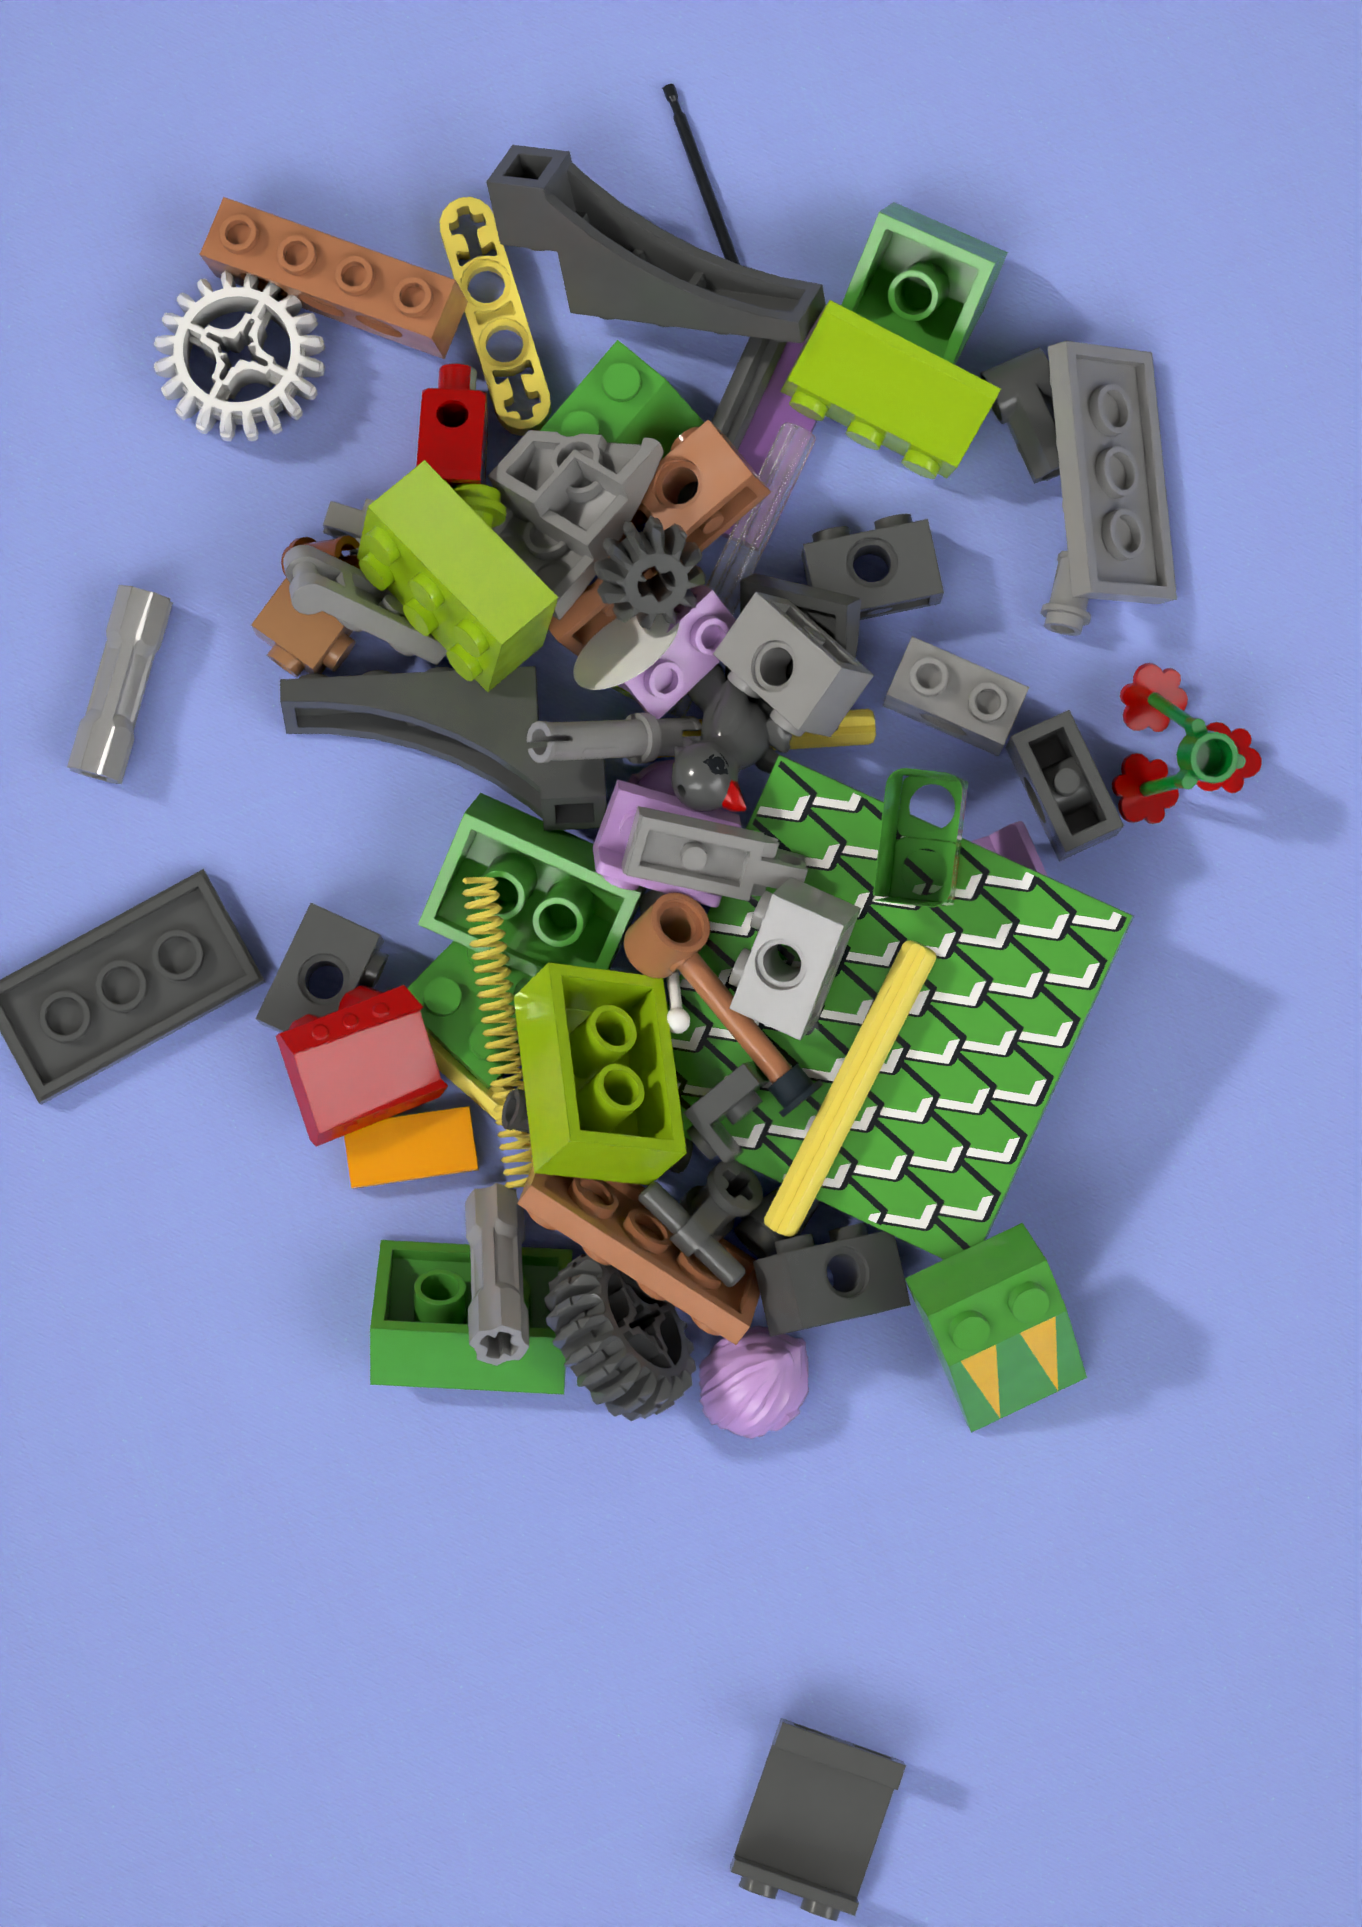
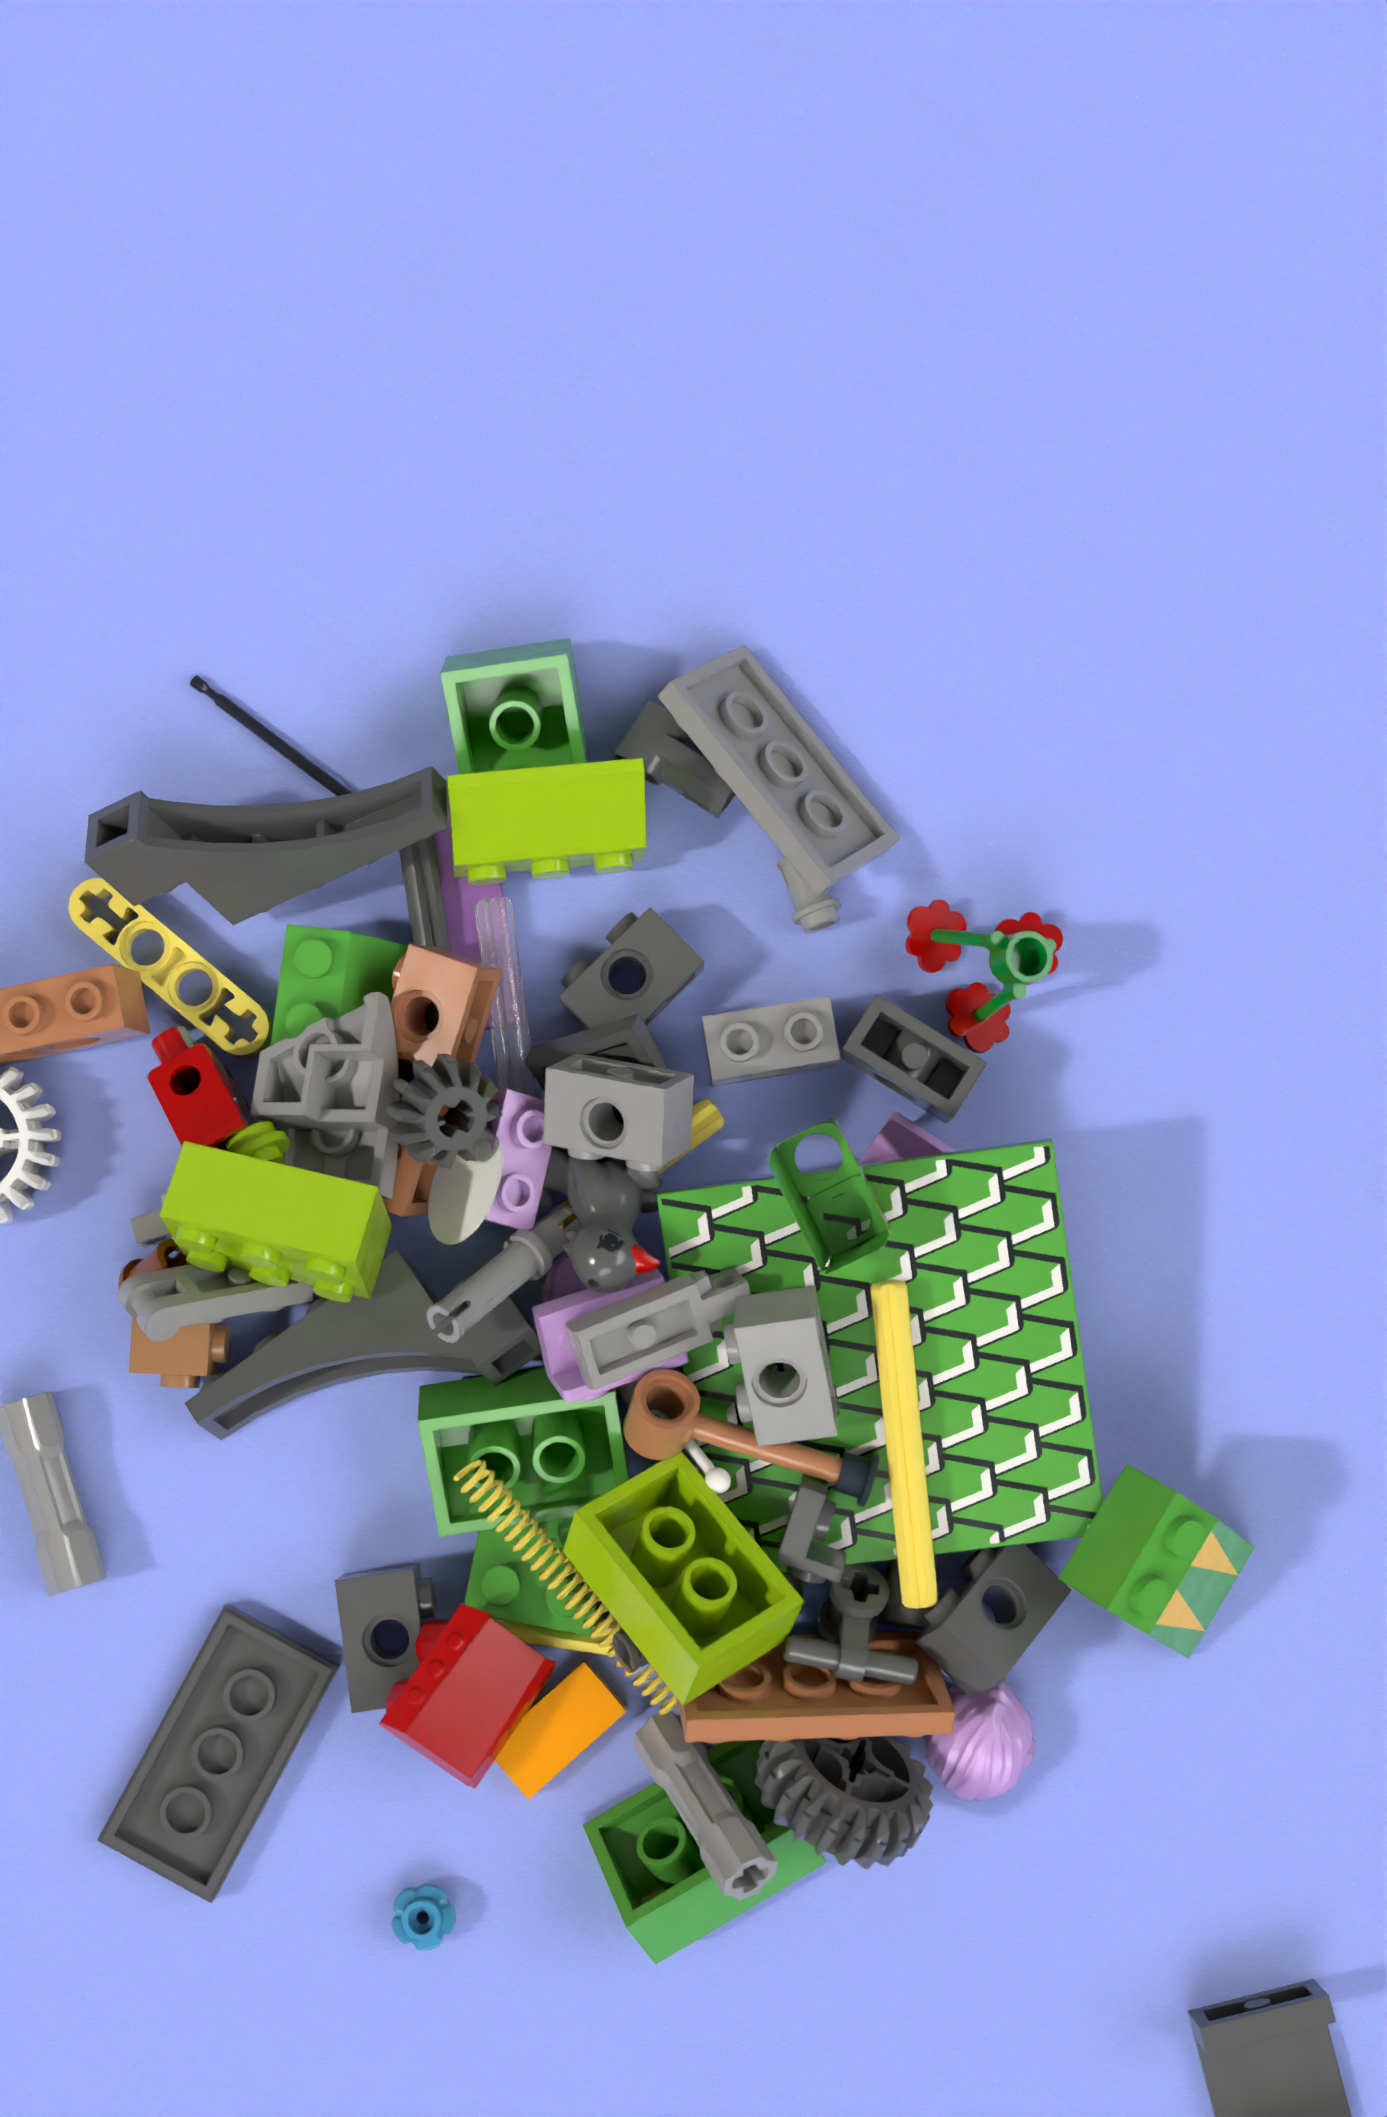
camera: 30 degrees left, 0 degrees up
(218, 1236) = (428, 1899): none -> dark azure plate

